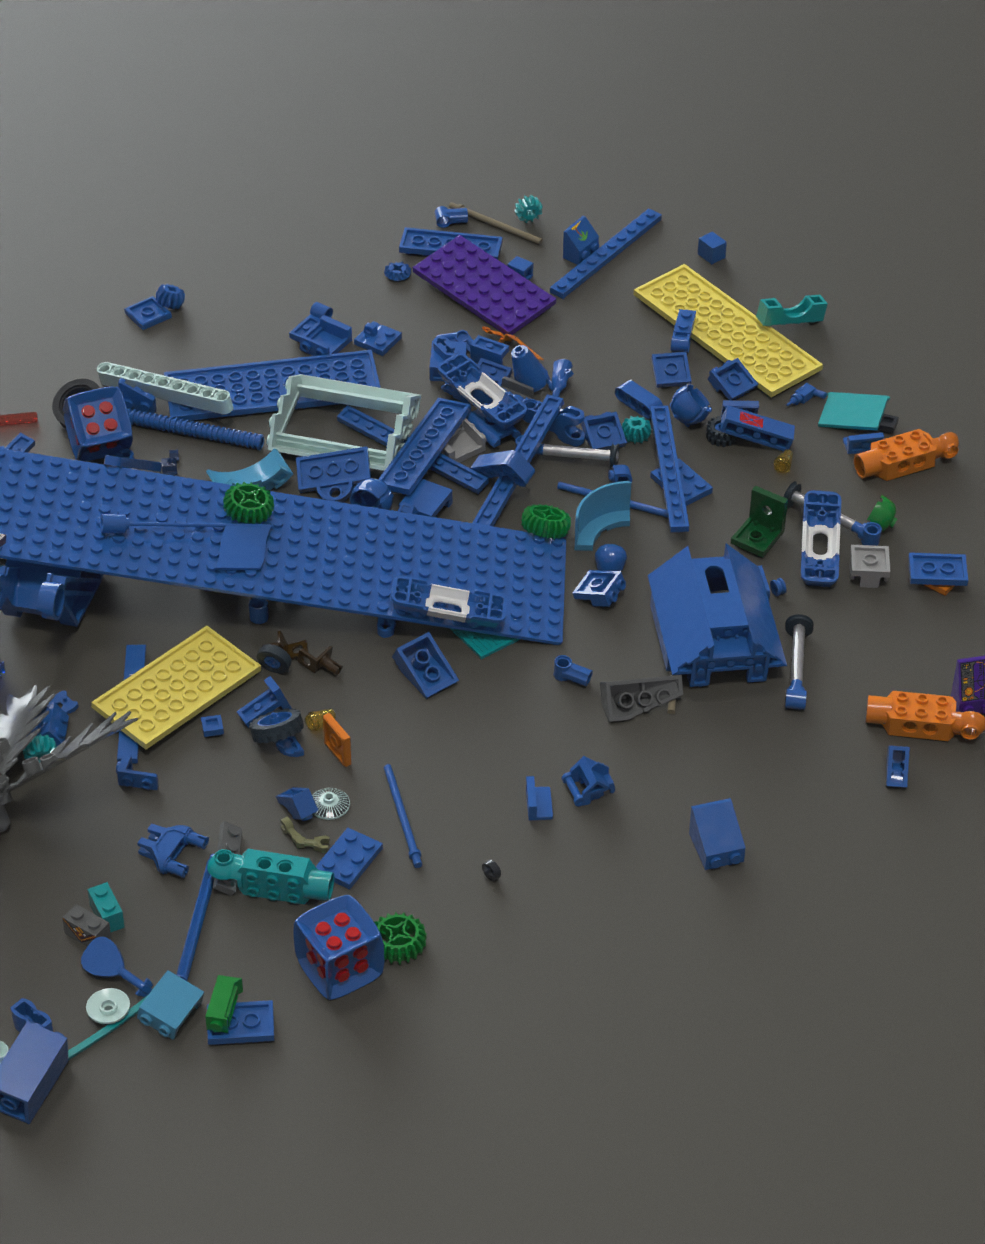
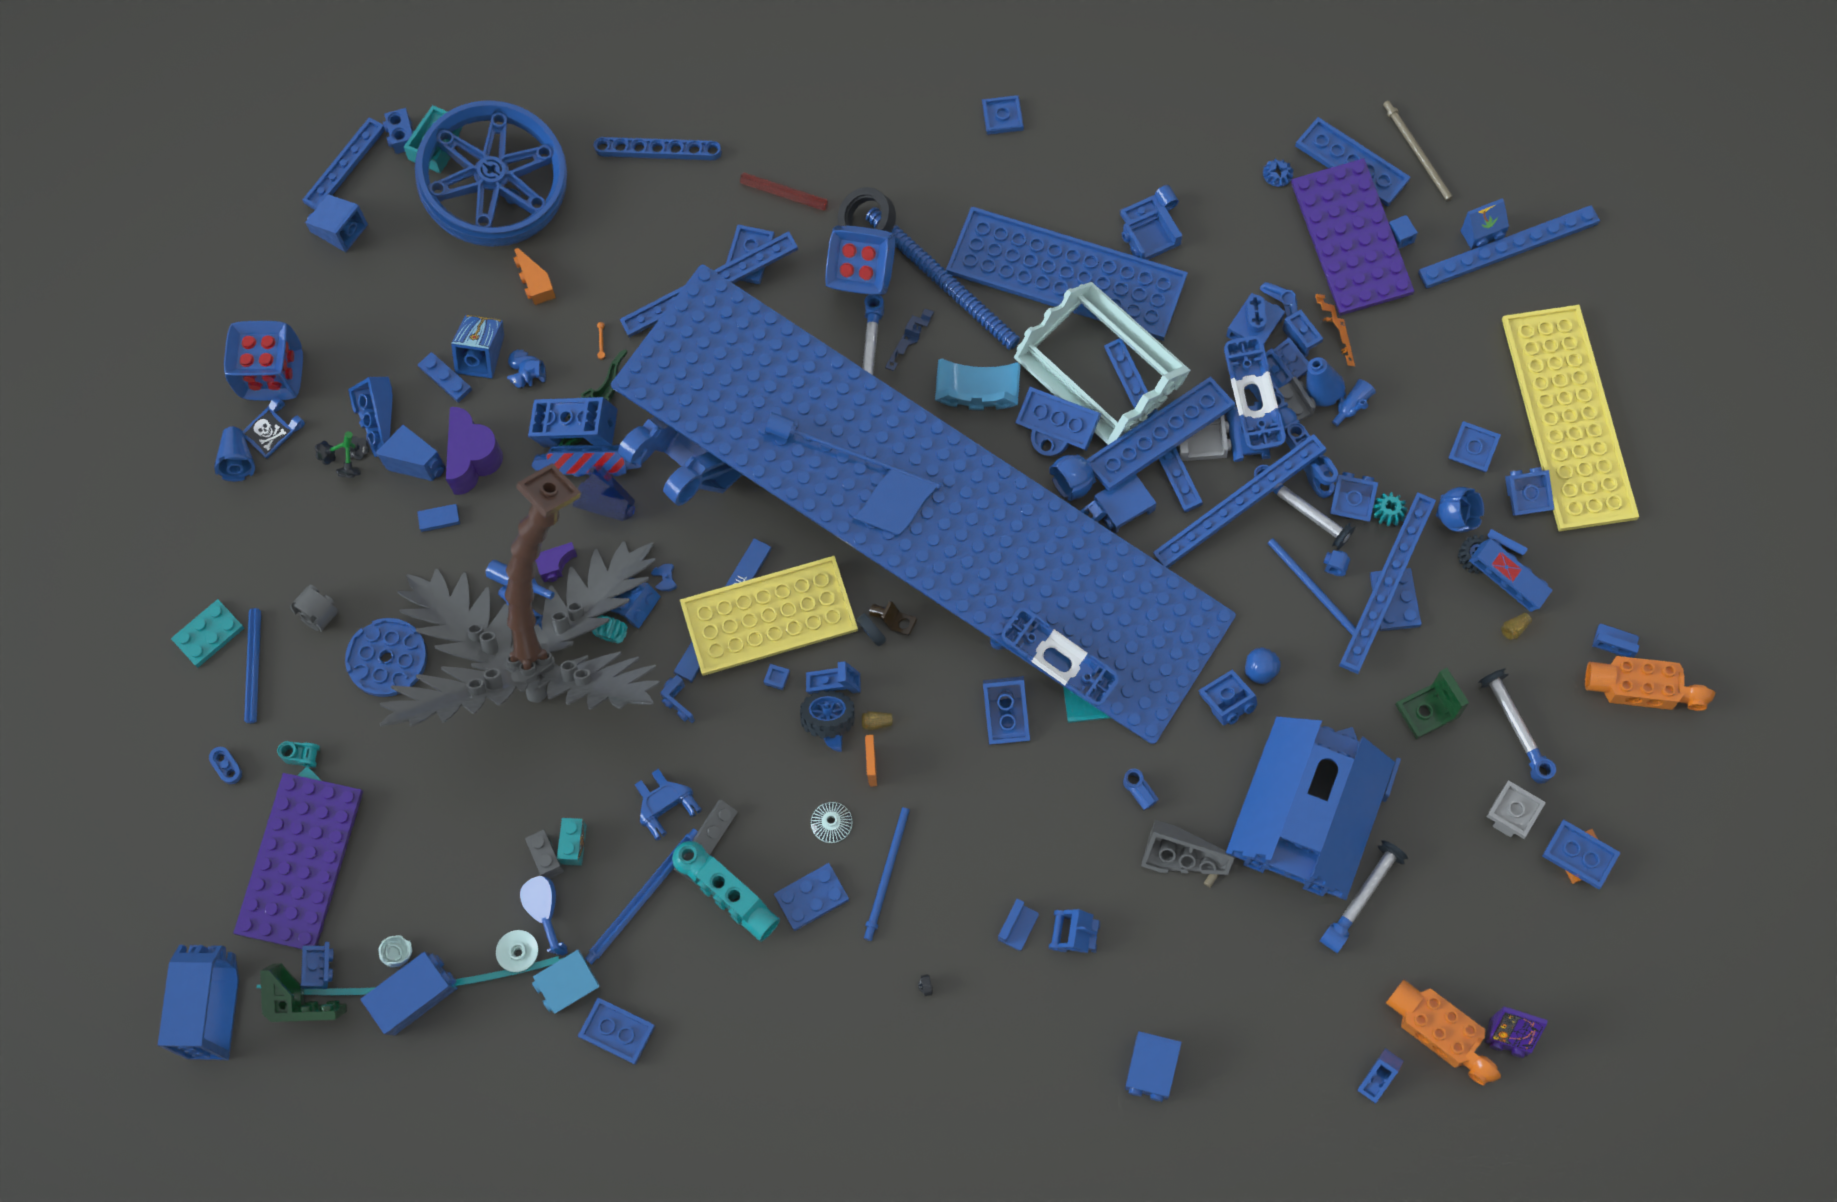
camera: 35 degrees right, 25 degrees up
(26, 1011) = (444, 936): blue brick -> none
(132, 463) = (861, 332): blue beam -> none
(136, 398) = (925, 231): blue wing -> none
(168, 388) = (958, 239): light aqua beam -> none
(170, 296) = (1031, 106): blue gear -> none
(223, 1003) = (605, 1010): green window -> none
(248, 503) = (941, 444): green gear -> none
(298, 802) = (799, 811): blue arch -> none
(300, 841) = (780, 856): olive piece -> none
(323, 660) = (918, 653): dark brown bracket -> none
(338, 947) = (732, 1008): blue piece -> none
(377, 338) = (1206, 256): blue hinge -> none
(396, 932) = (791, 1020): green gear -> none
(446, 216) = (1370, 119): blue piece -> none
(504, 464) = (1218, 503): blue beam -> none
(528, 208) = (1459, 151): teal gear -> none
(546, 521) = (1224, 589): green gear -> none
(601, 510) = (1281, 605): dark azure panel -> none
(637, 398) = (1417, 468): blue beam -> none
(683, 331) = (1519, 399): blue plate -> none
(712, 247) = (1623, 295): blue piece -> none
(778, 586) = (1406, 788): blue bush -> none
(805, 393) = (1596, 545): blue piece -> none
(810, 309) = (1672, 435): teal arch -> none
(822, 516) = (1503, 728): blue piece -> none
(853, 411) = (1632, 595): teal piece -> none
(884, 513) = (1568, 753): green cylinder -> none
(888, 423) = (1657, 629): black plate -> none

